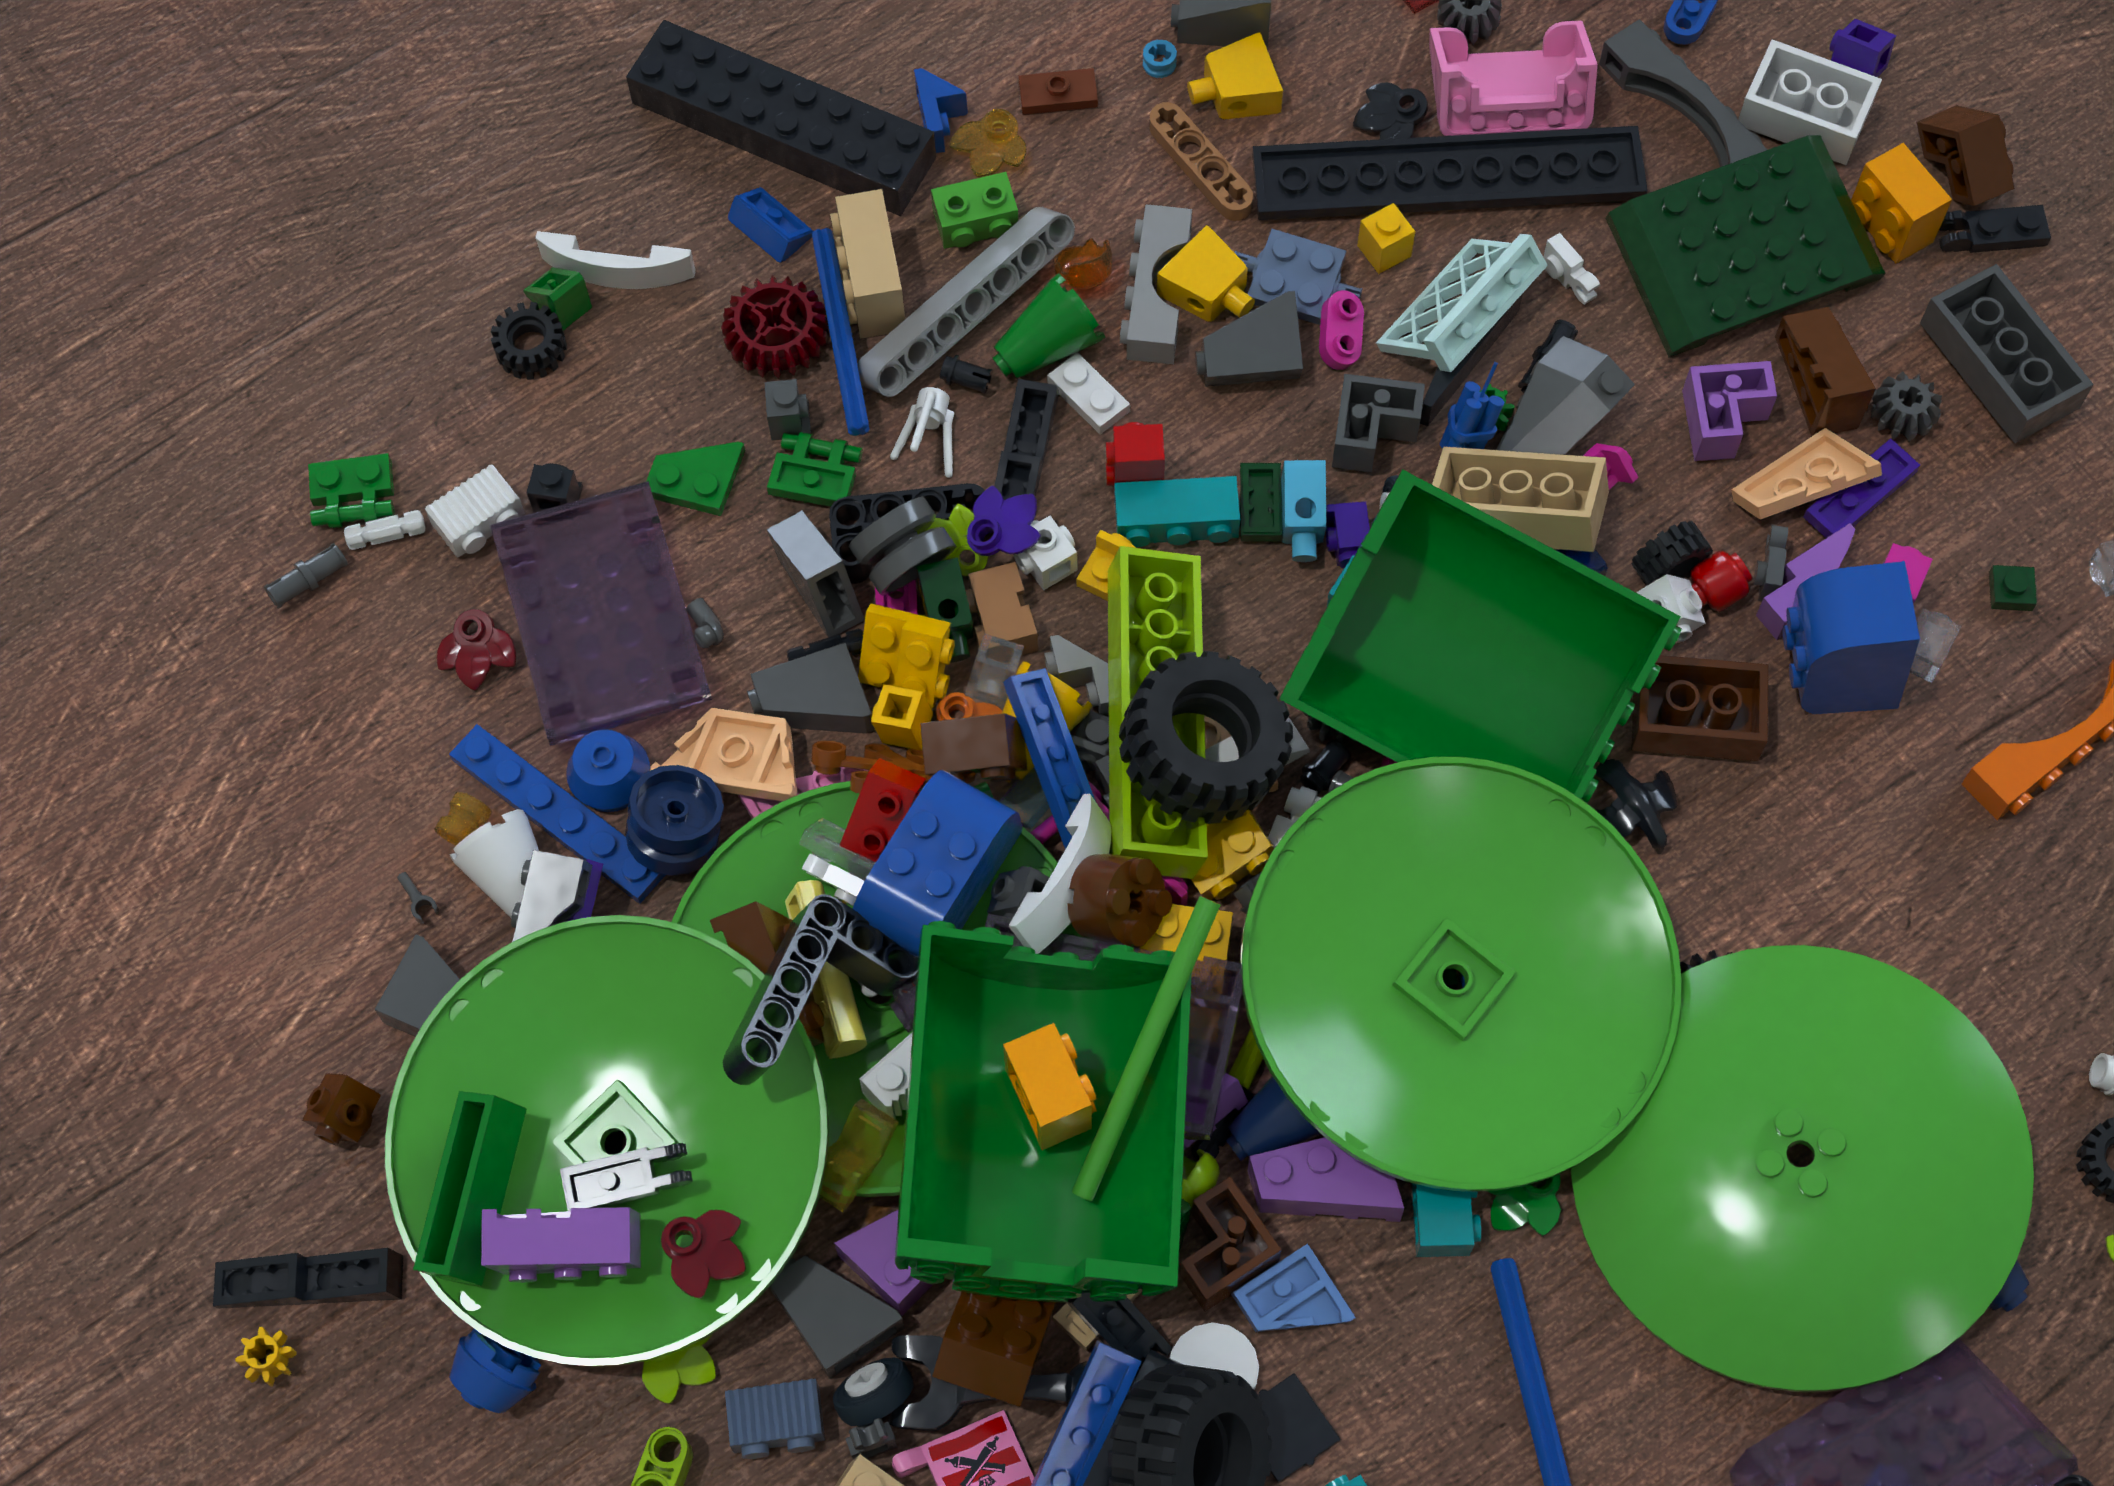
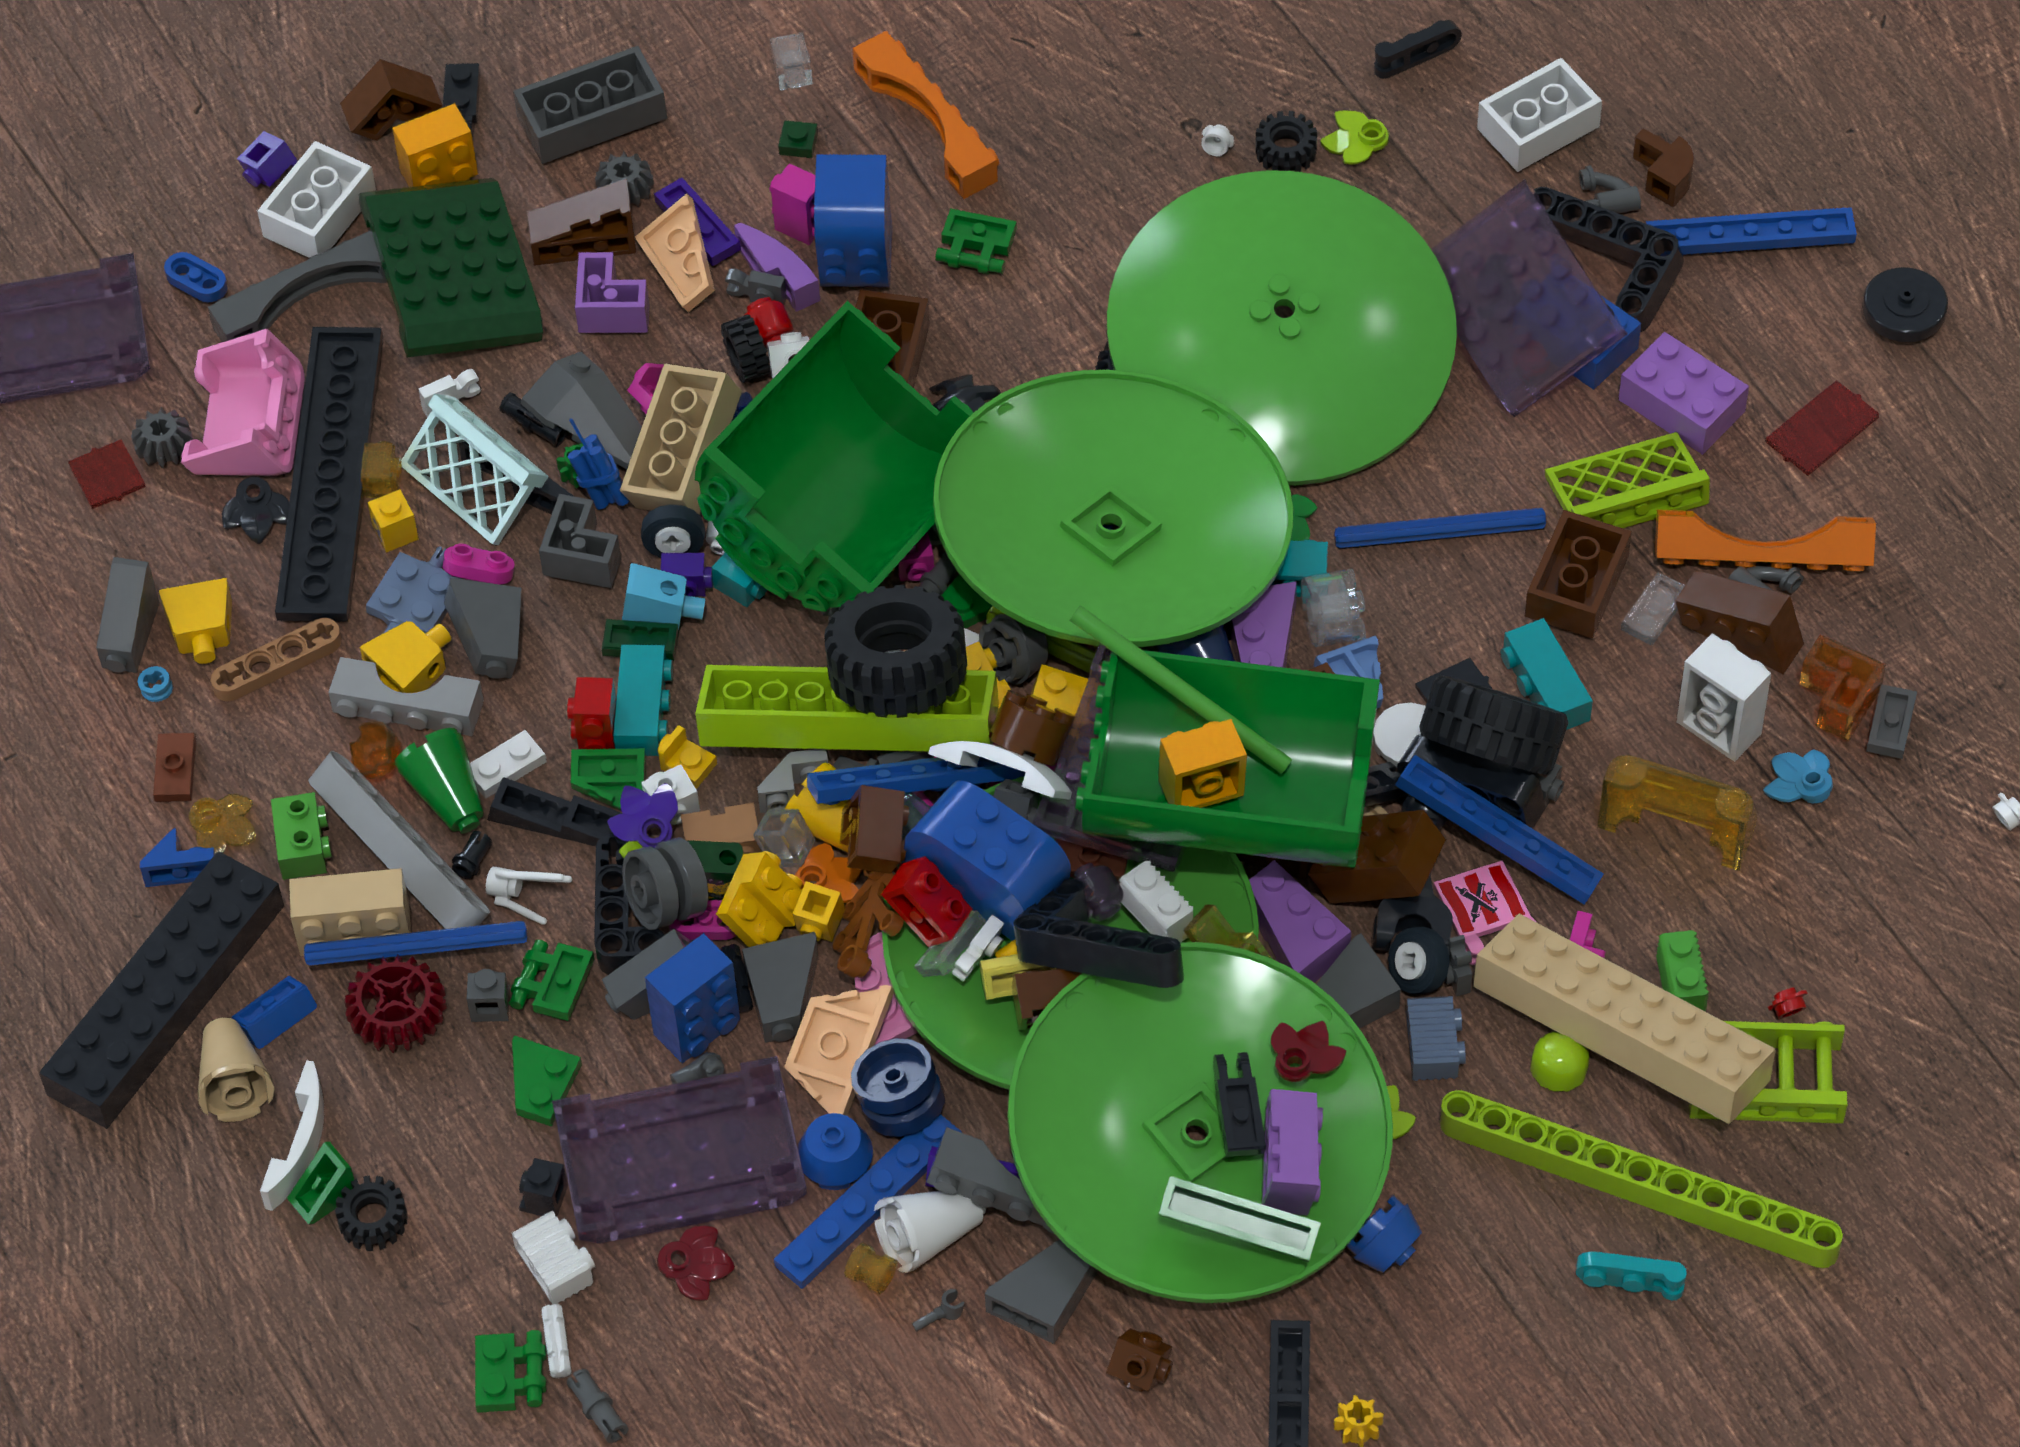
camera: 85 degrees left, 10 degrees down
(685, 186) = (231, 1073): none -> tan cone
(764, 594) = (693, 998): none -> blue brick
(1077, 492) = (606, 772): none -> green wing
(1374, 1257) = (1333, 608): none -> clear brick
(1455, 217) = (380, 469): none -> clear yellow brick
(1902, 800) = (976, 232): none -> green plate

